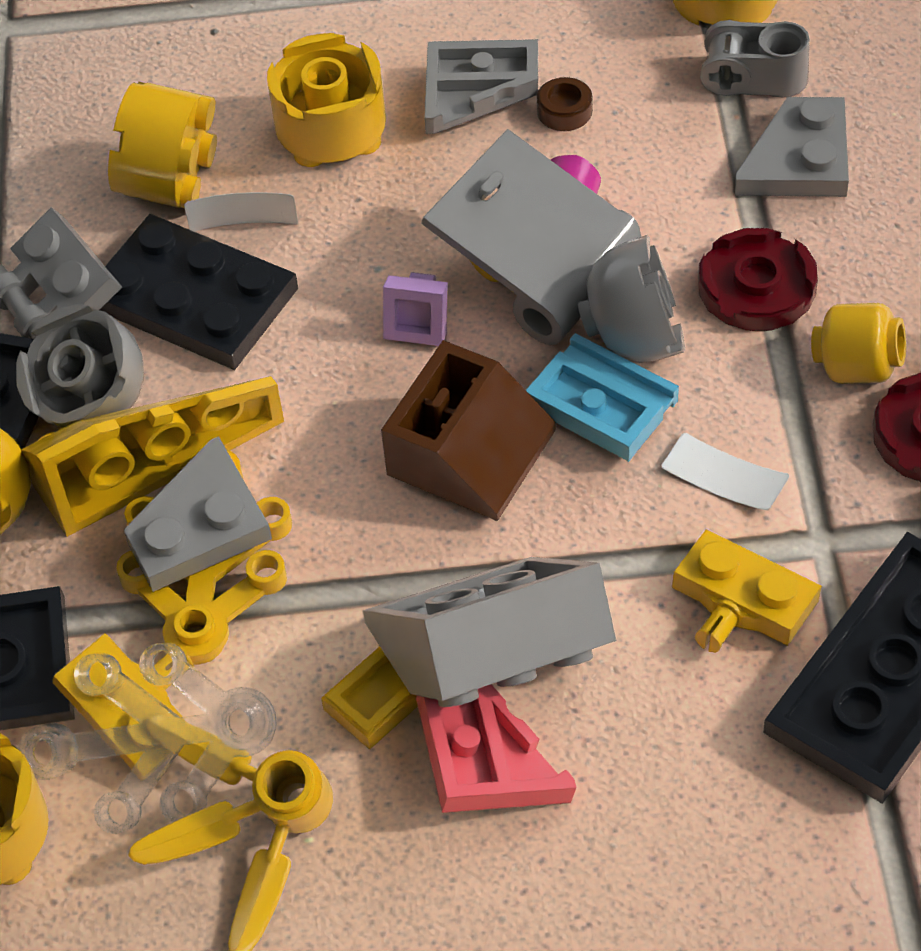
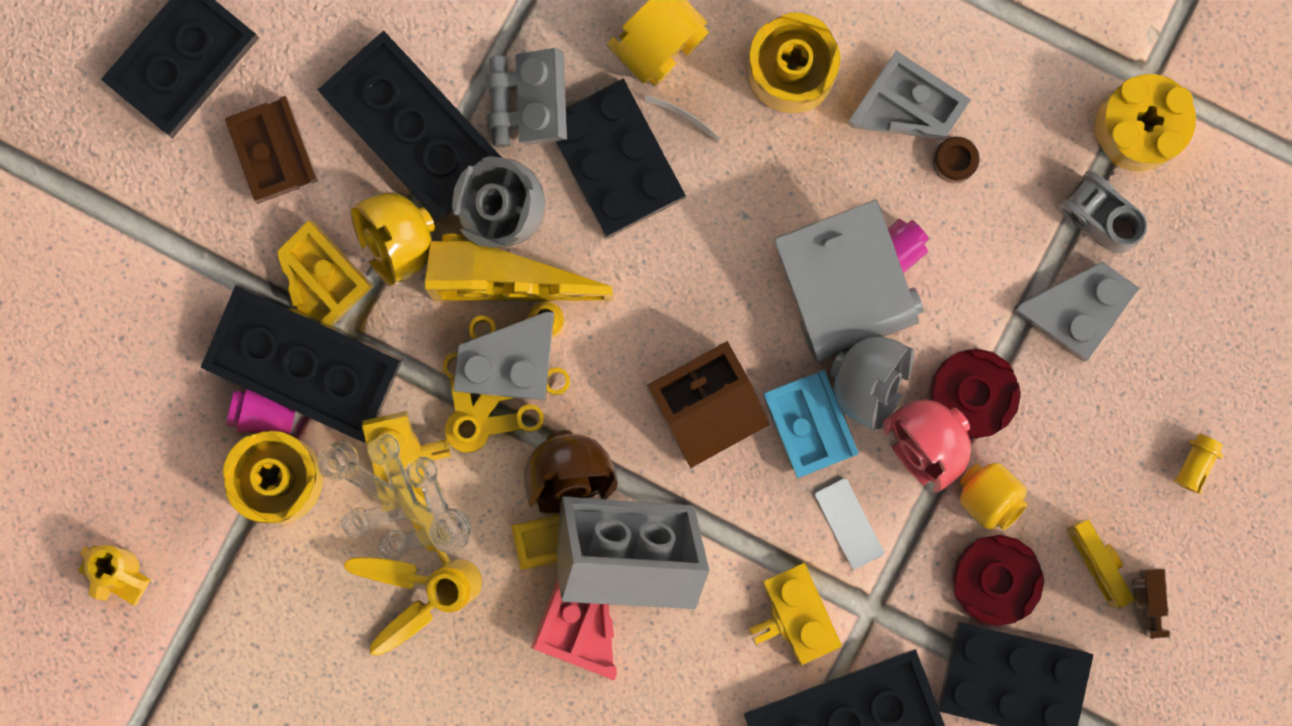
camera: 30 degrees right, 30 degrees up
(347, 574) = (568, 468): none -> reddish brown cylinder
(415, 309) = (741, 278): lavender tile -> none
(745, 327) = (930, 441): none -> coral cylinder

